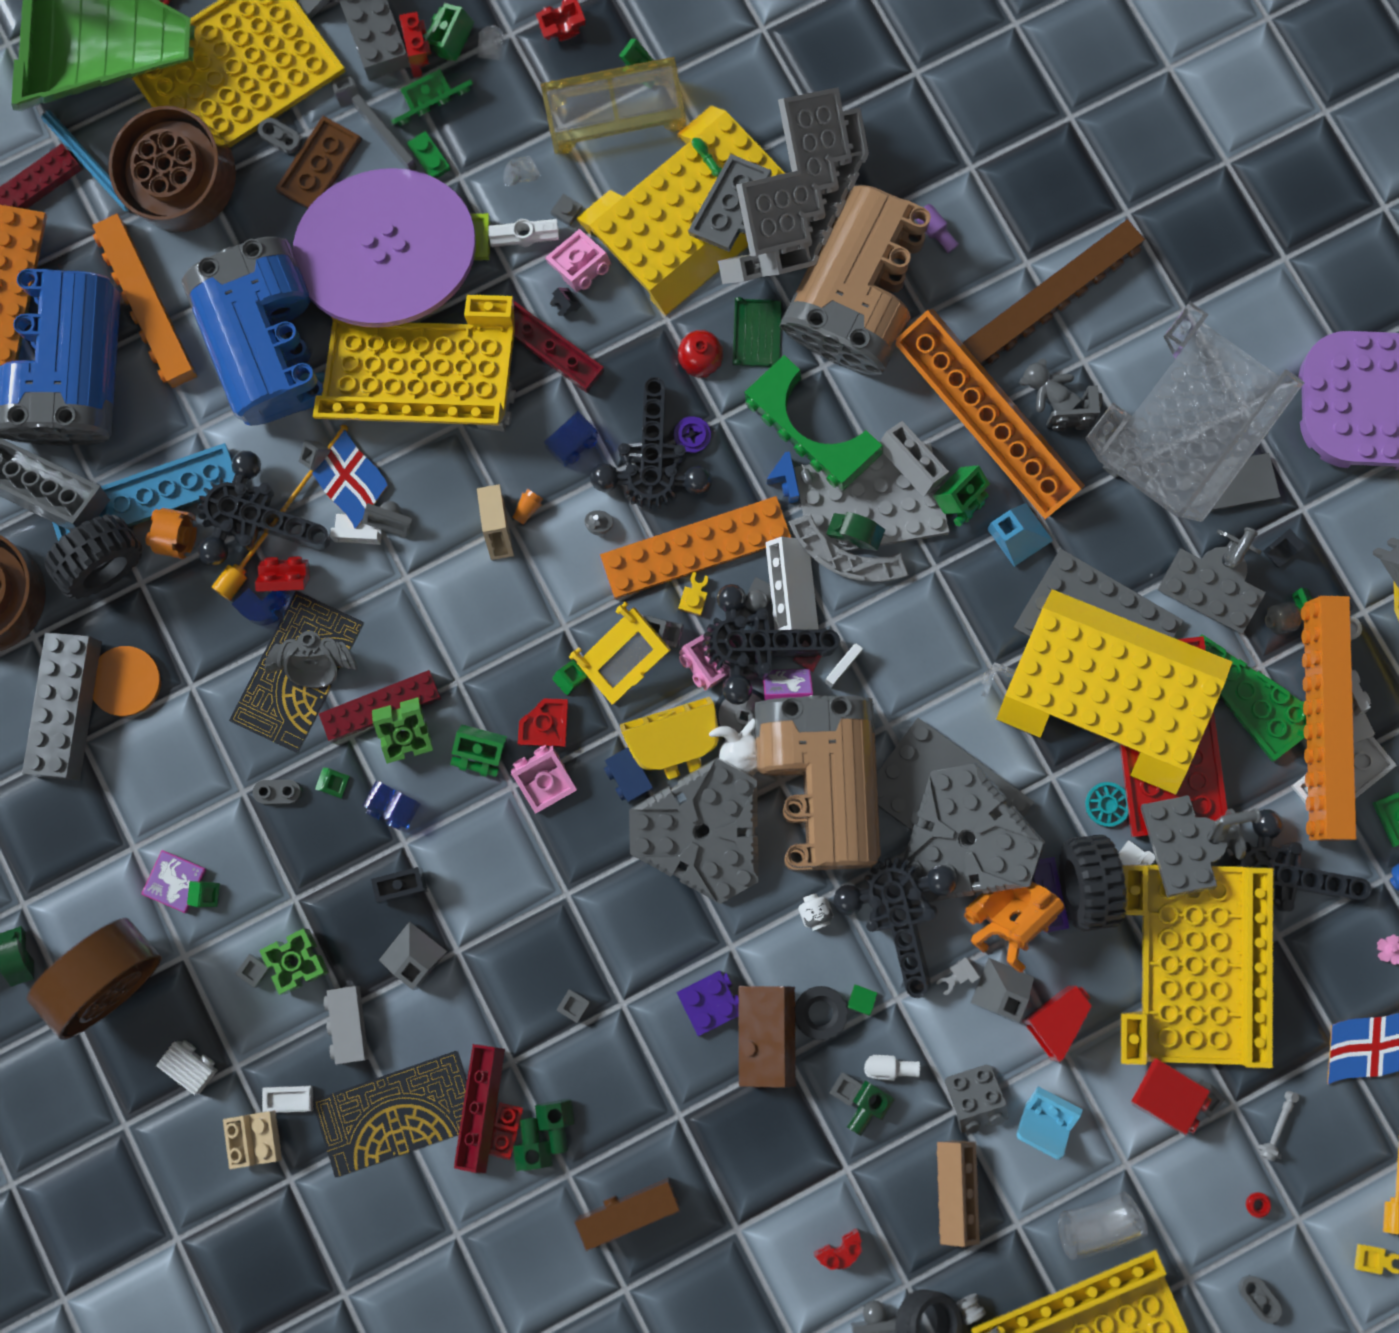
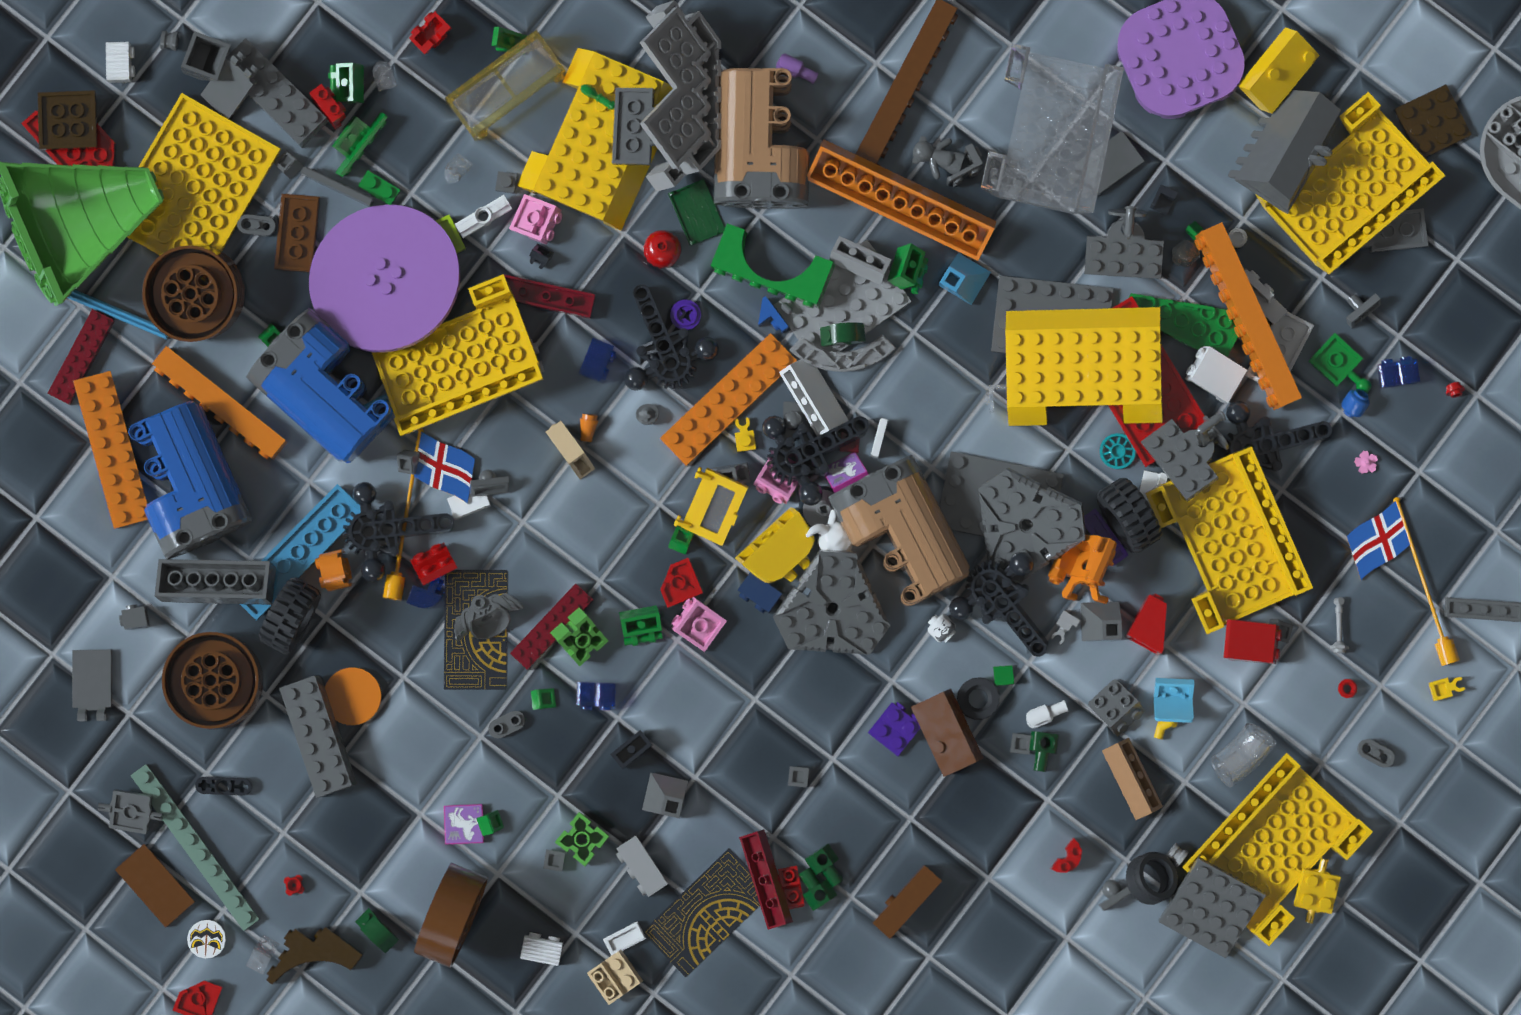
camera: 25 degrees left, 5 degrees up
(1017, 1148) = (1161, 727): none -> yellow arm
(1261, 767) = (1215, 373): none -> white panel

